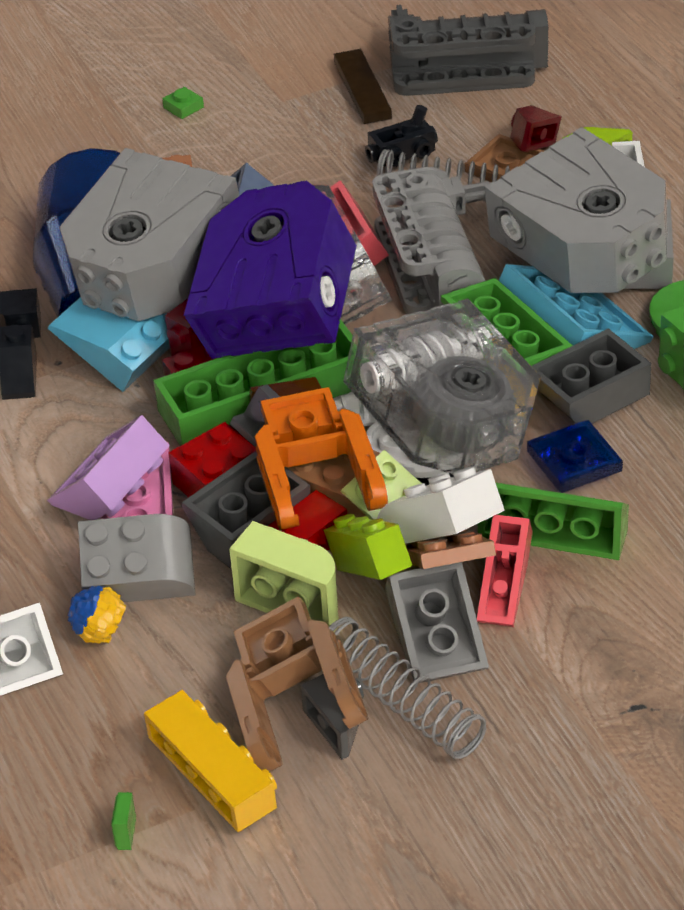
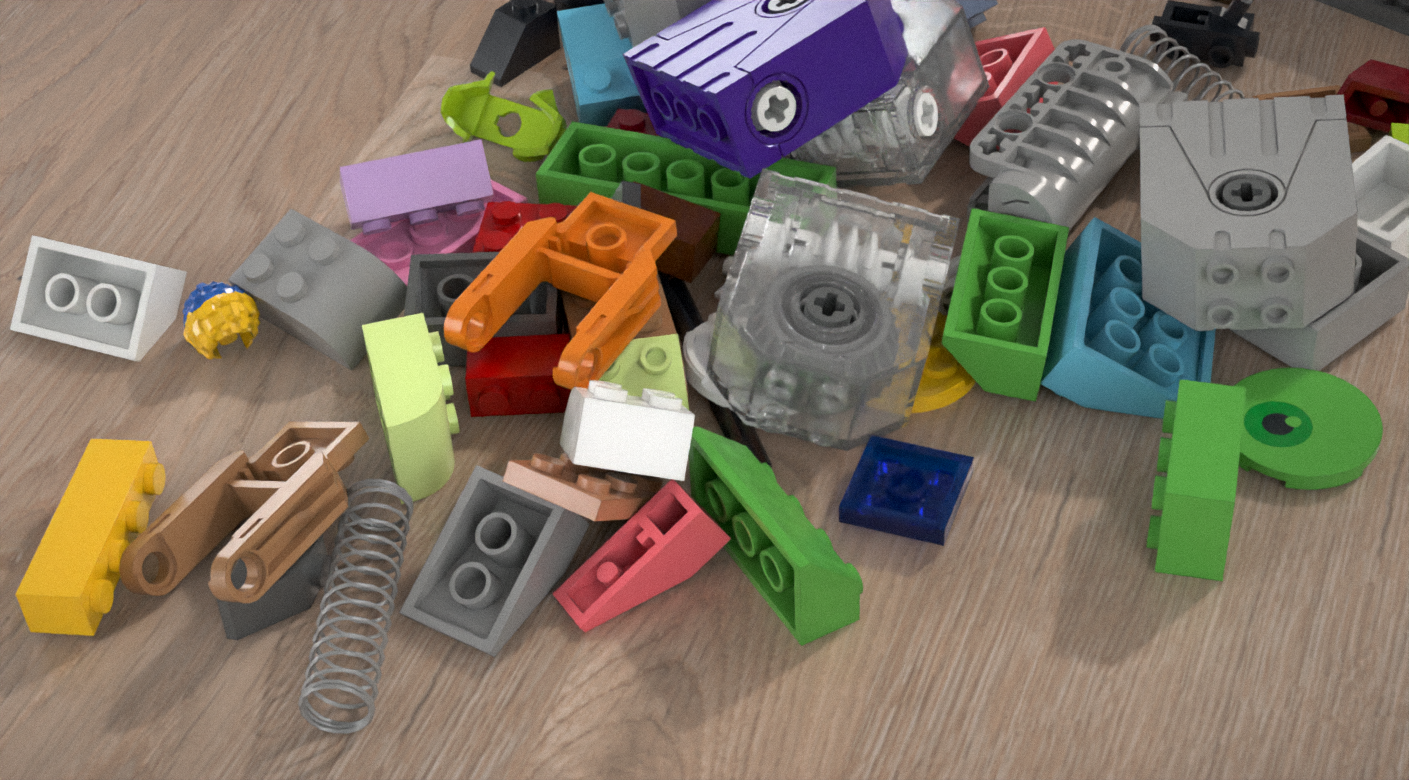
camera: 45 degrees right, 0 degrees up
(116, 406) = (475, 113): none -> lime piece
(367, 546) = (509, 422): lime brick -> none
(594, 377) = (1031, 412): dark grey brick -> none

